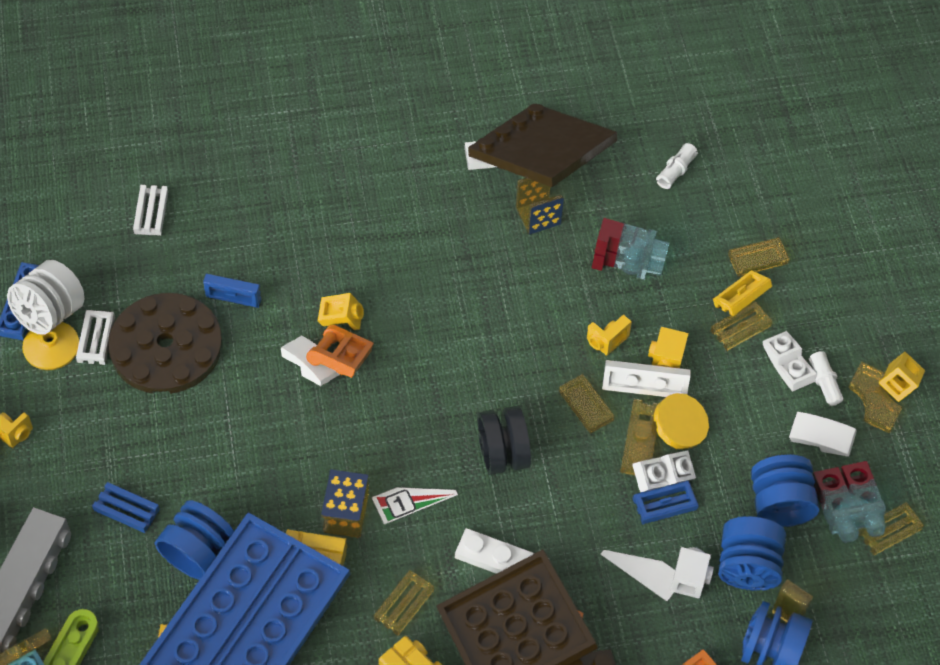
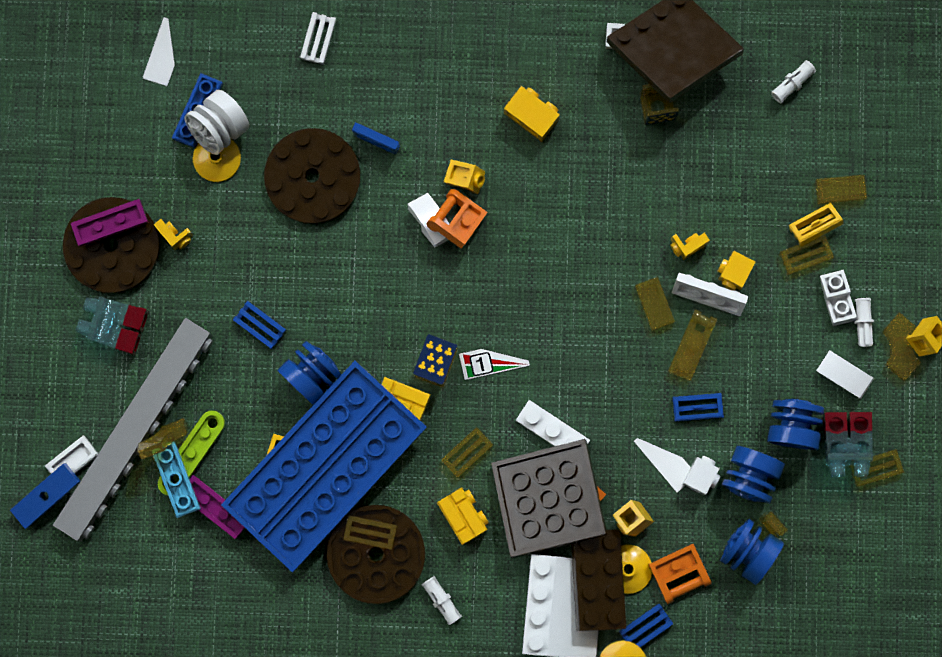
camera: 20 degrees right, 25 degrees up
(92, 356) = (249, 178): white tile -> none
(402, 238) = (532, 113): none -> yellow brick
(504, 440) = (575, 333): black wheel -> none
(622, 632) = (632, 518): none -> yellow brick
(629, 249) = (727, 167): clear light blue hips -> none
(664, 471) = (703, 381): white slope -> none
(681, 421) = (729, 339): yellow tile -> none

